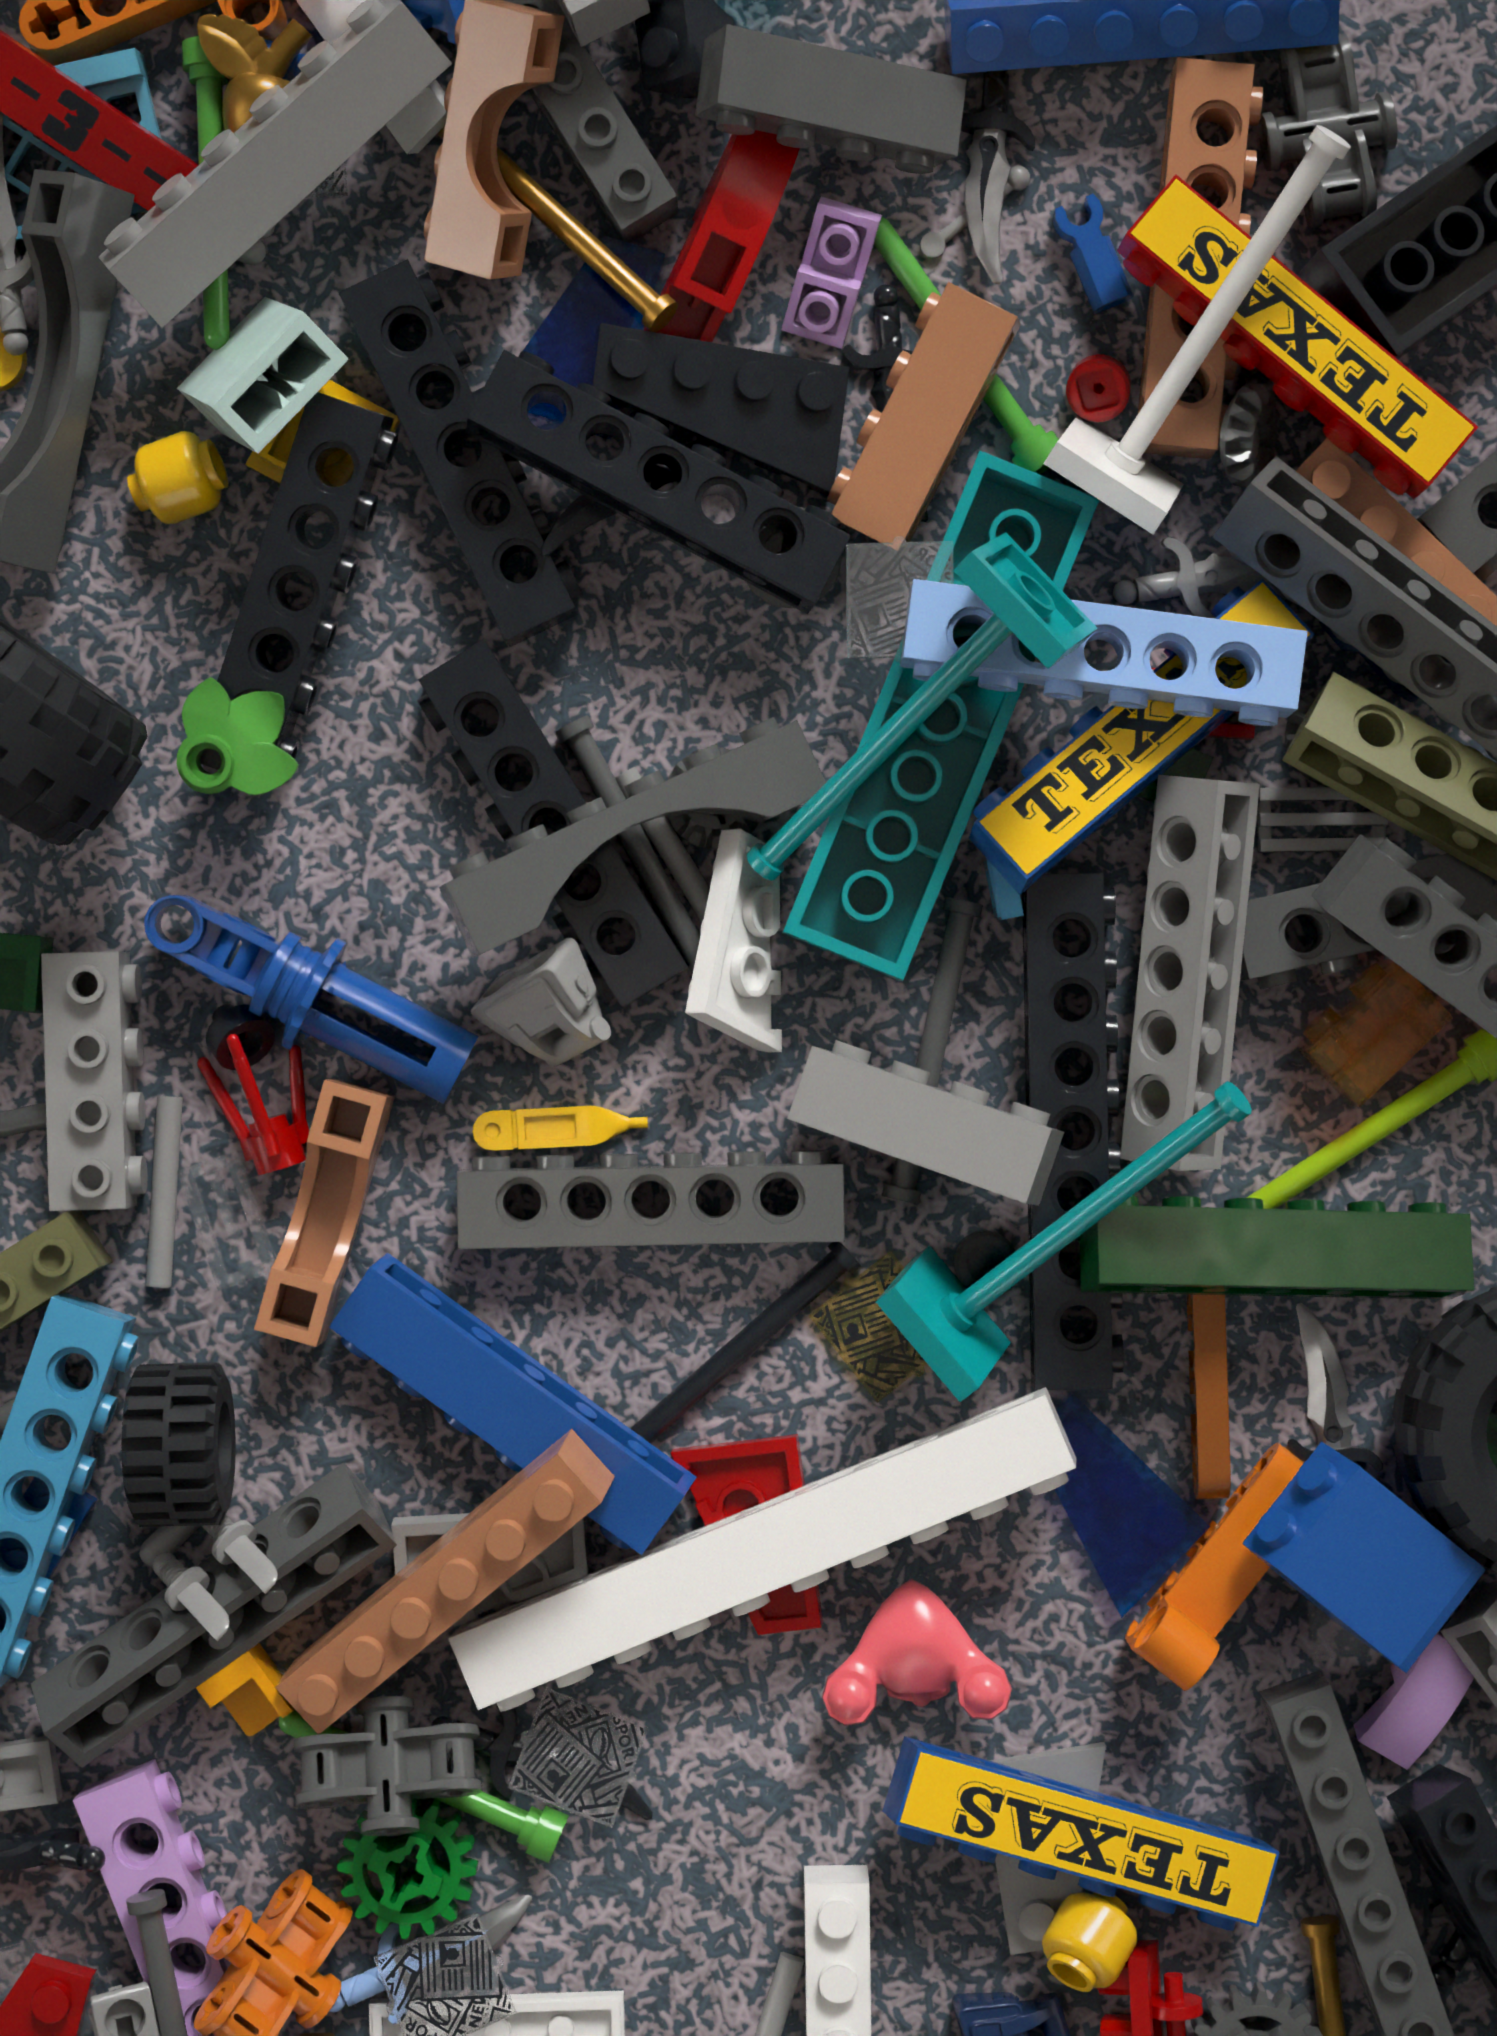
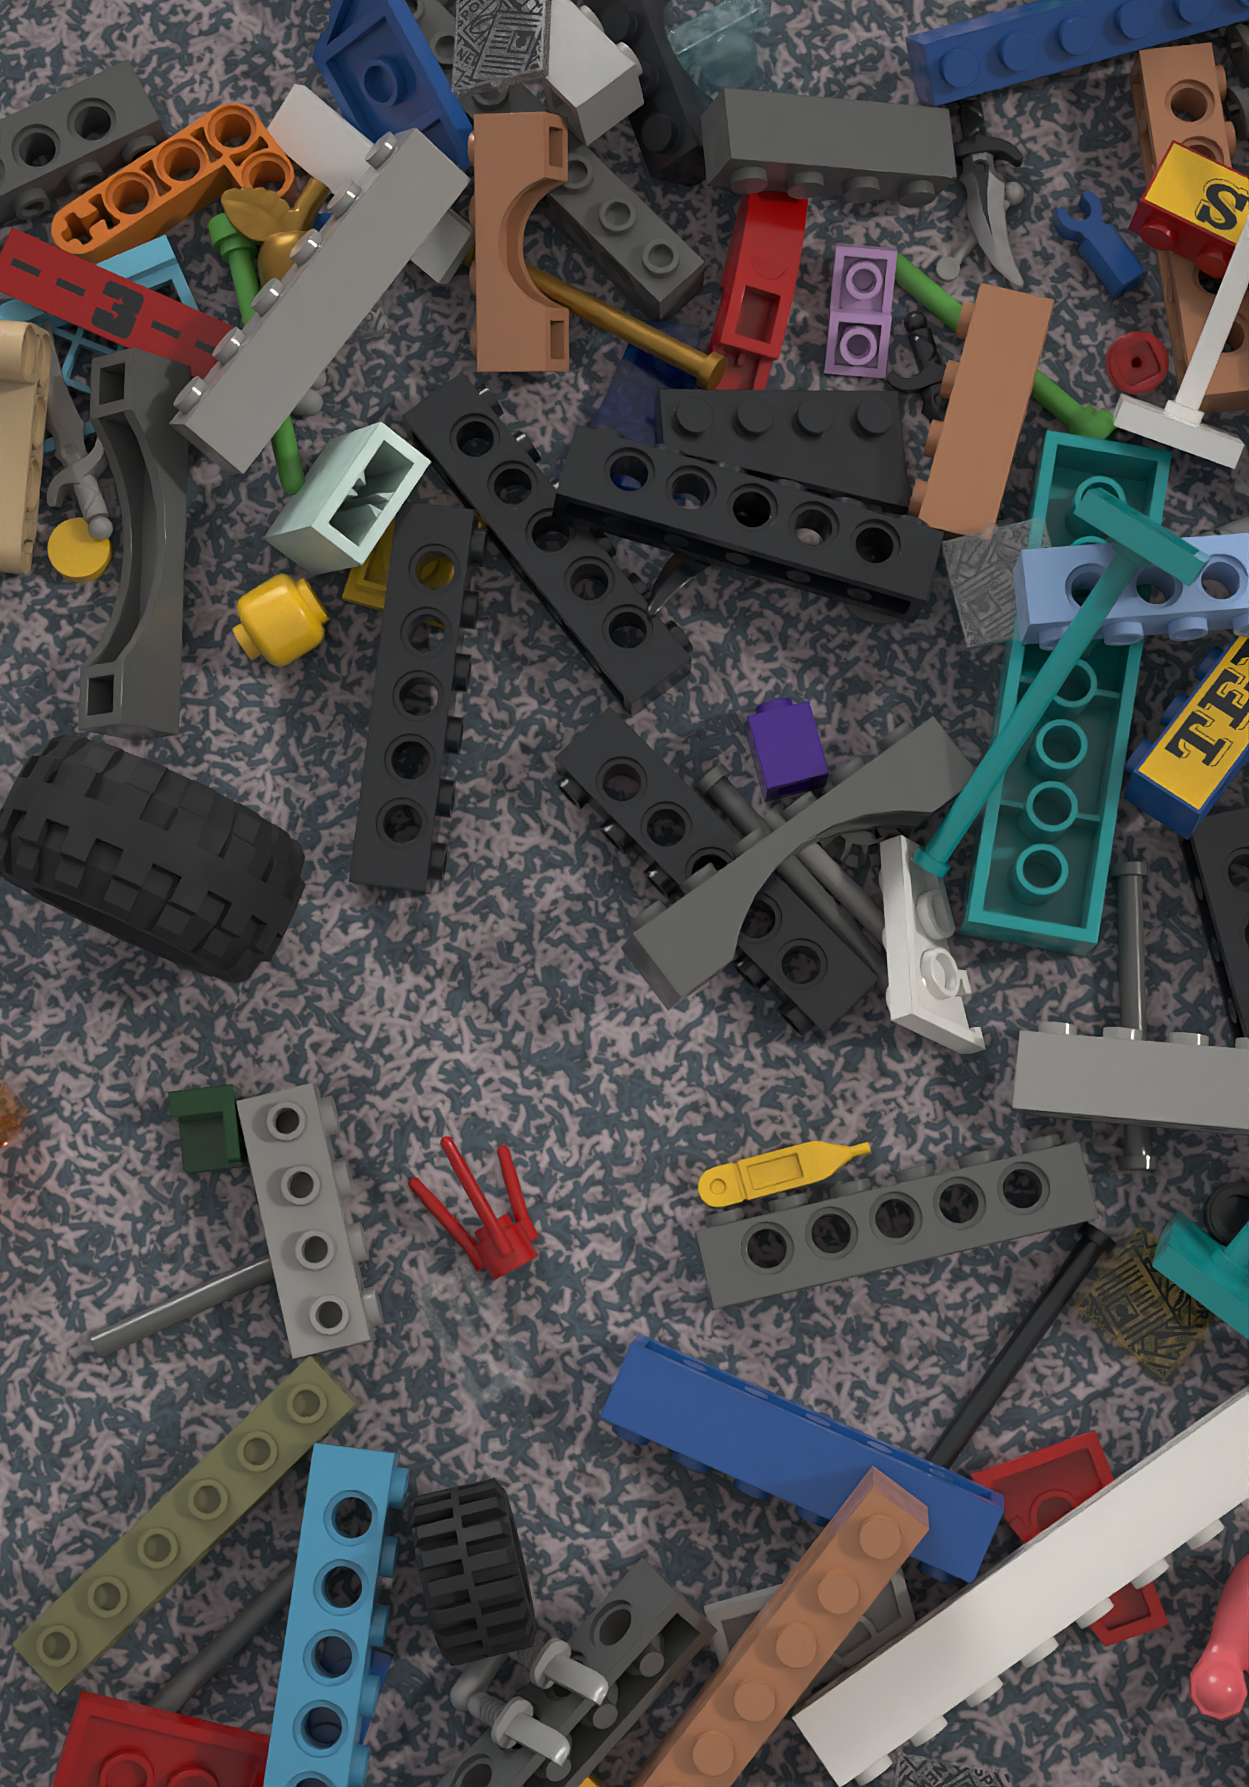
camera: 10 degrees left, 10 degrees down
(164, 1191) = (401, 1320): light grey bar -> none
(242, 735) = (394, 842): bright green plate -> none
(253, 1031) = (429, 1150): black tile -> none
(289, 981) = (485, 1079): blue piece -> none
(327, 1212) = (570, 1301): nougat arch -> none
(546, 1005) = (739, 1041): light grey piece -> none
(651, 714) = (786, 749): none -> dark purple brick
(1004, 898) = (1167, 848): dark azure tile -> none

